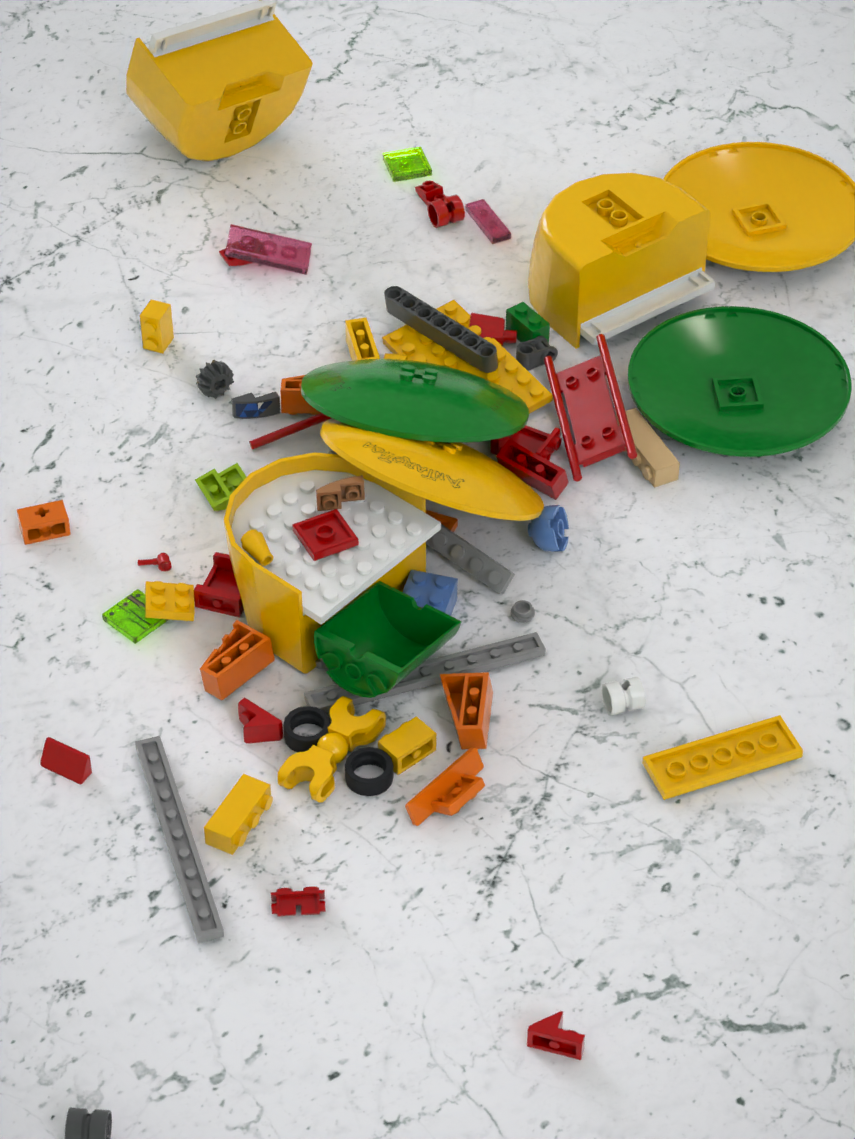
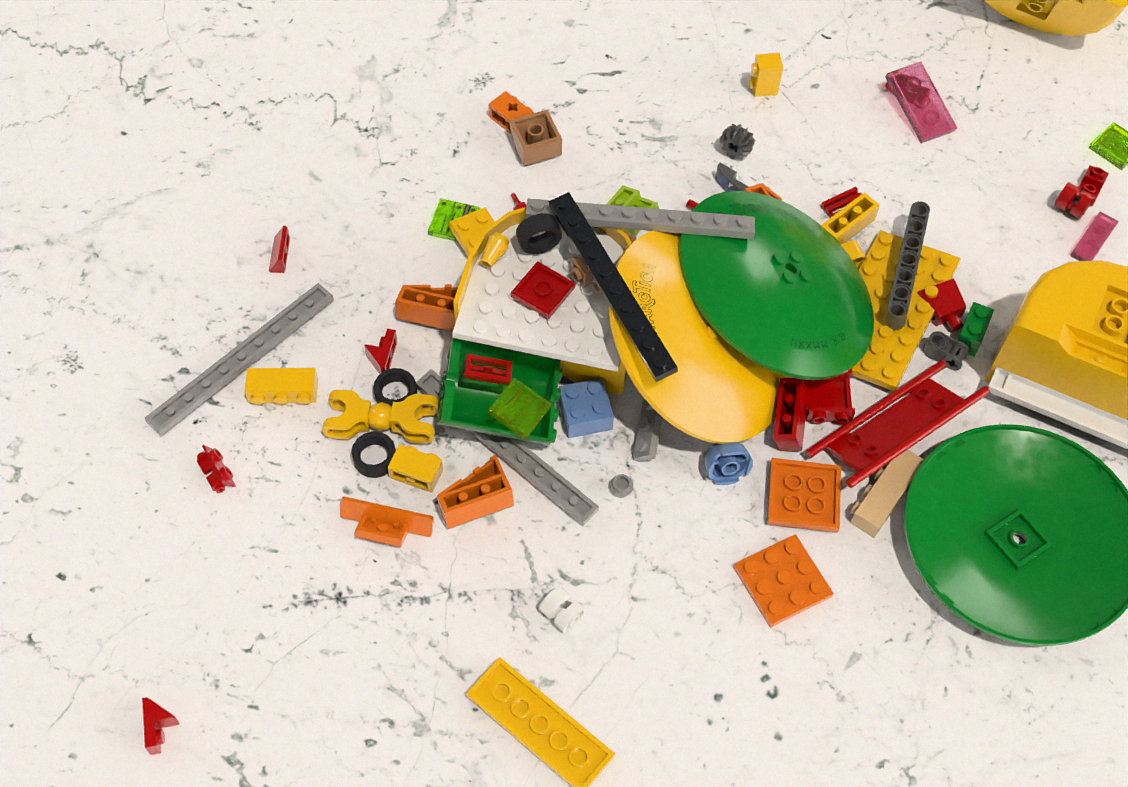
camera: 60 degrees right, 15 degrees up
(92, 511) = (536, 137): none -> medium nougat slope
(270, 504) = (534, 225): none -> black tyre
(302, 437) = (657, 219): none -> light grey plate
(333, 337) = (840, 201): none -> red tile
(367, 626) = (487, 373): none -> red tile
(373, 470) = (613, 287): none -> black plate
(418, 623) = (519, 408): none -> clear neon green tile
(612, 499) = (804, 495): none -> orange plate
(682, 549) = (783, 580): none -> orange plate

